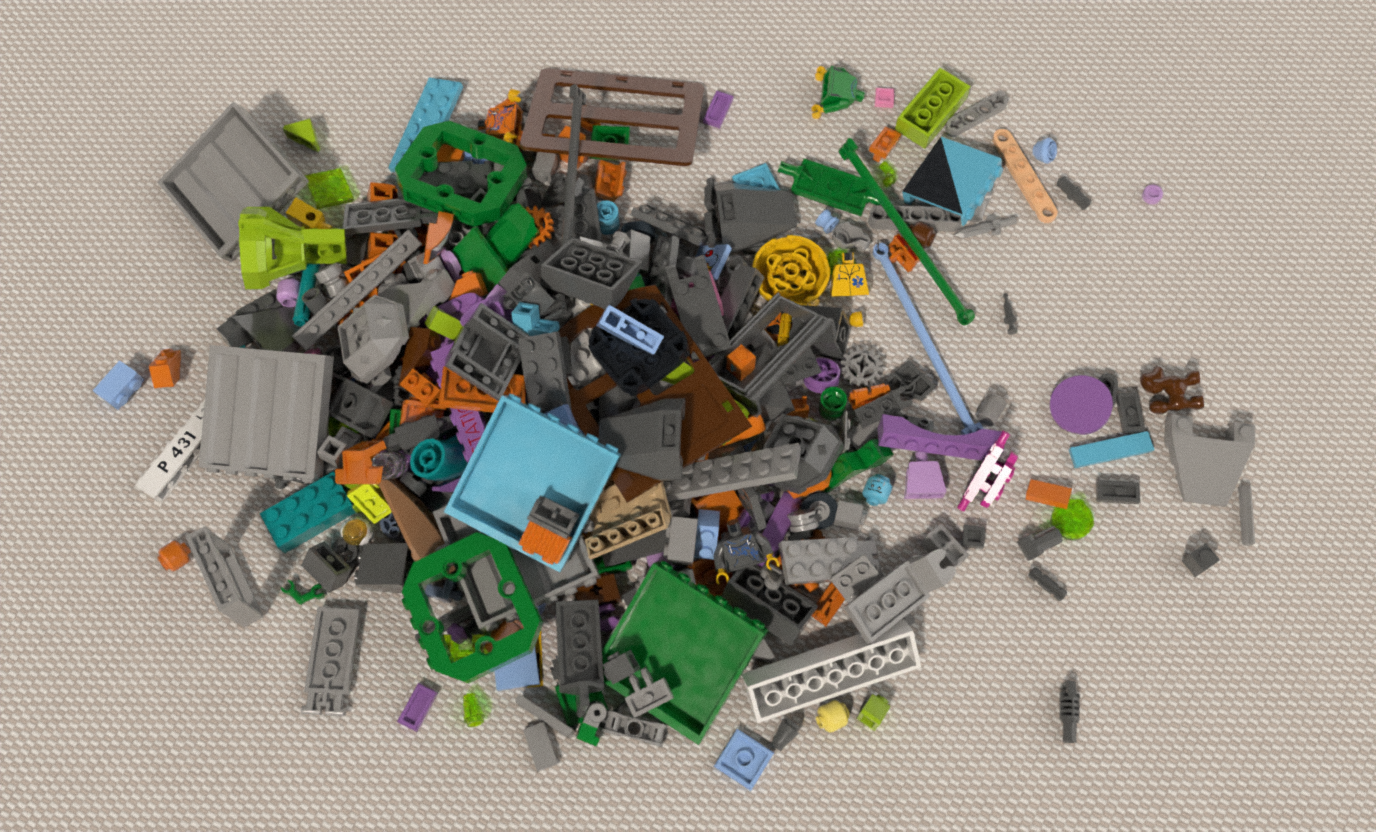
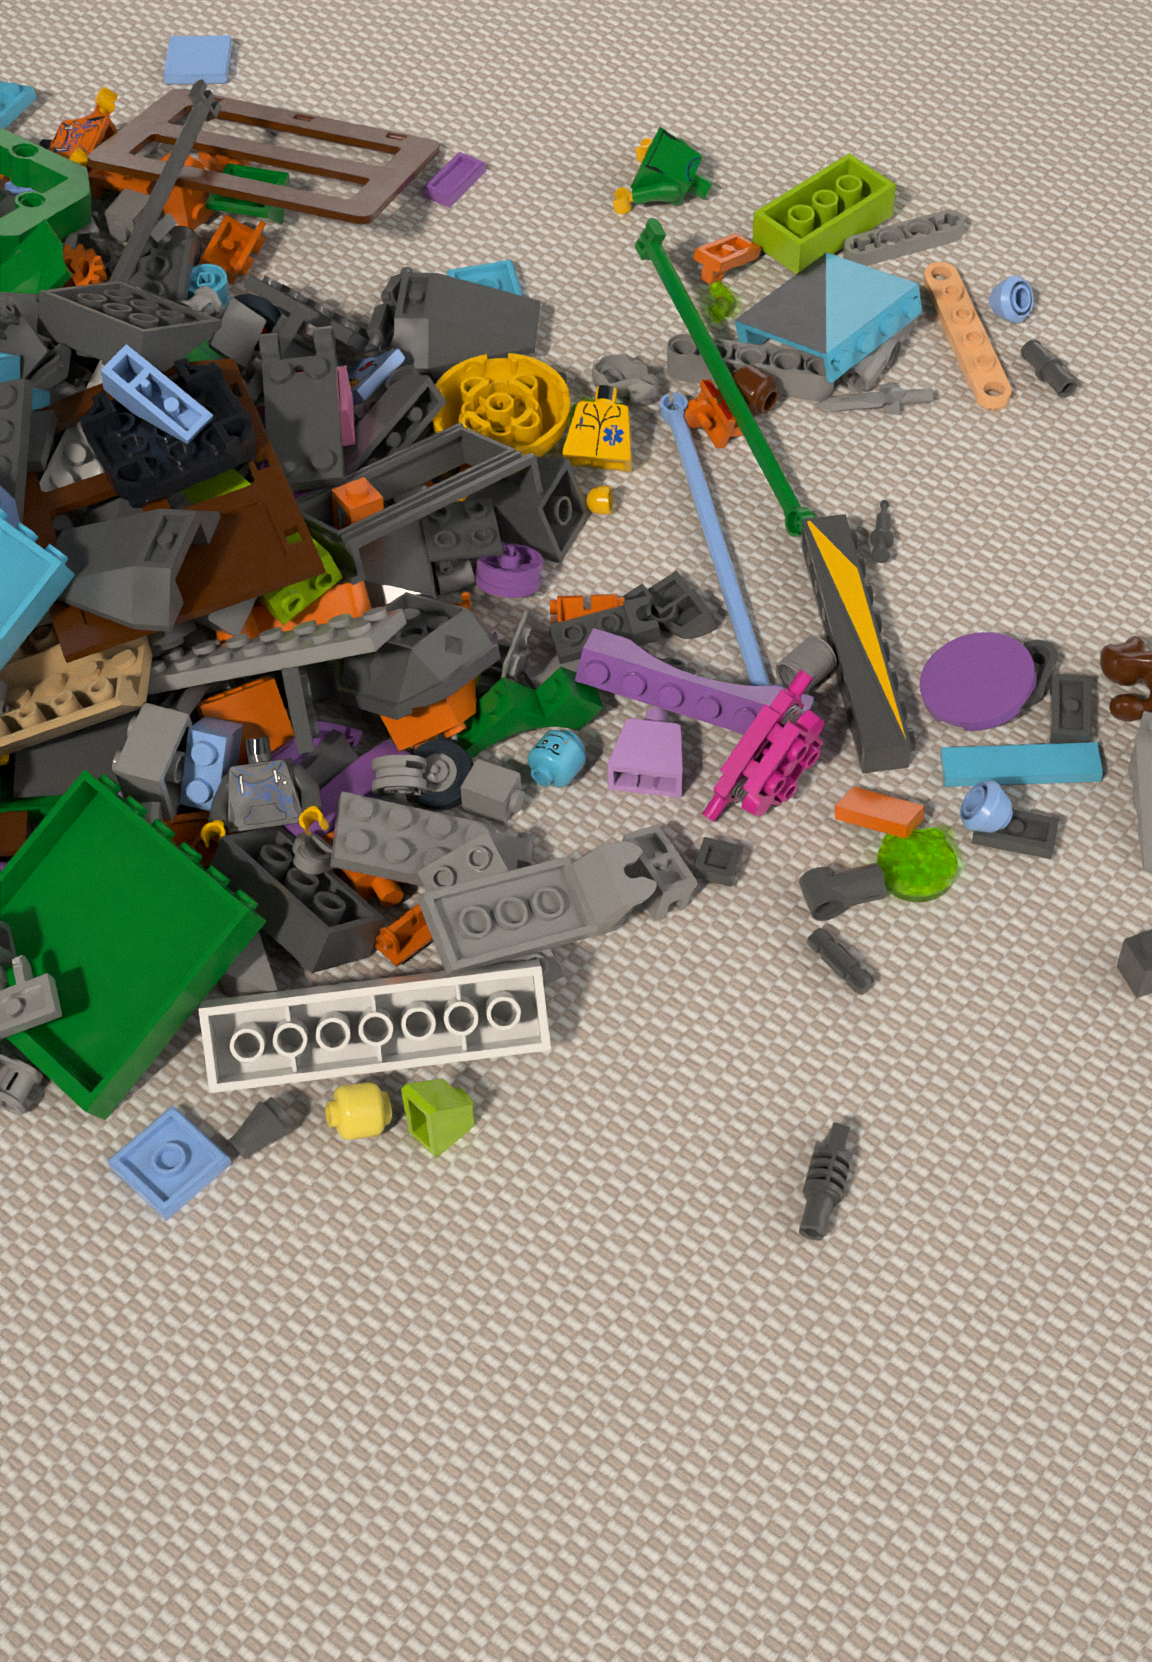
camera: 10 degrees right, 15 degrees down
(547, 43) = (197, 59): none -> light blue tile
(827, 221) = (589, 349): light blue wheel -> none
(829, 186) = (608, 303): green plate -> none
(832, 403) = (507, 607): green wheel -> none
(871, 367) = (586, 569): light grey gear -> none
(884, 97) = (747, 196): bright pink tile -> none
(1010, 385) = (854, 632): none -> dark grey brick
(1104, 487) = (986, 808): none -> light blue cone

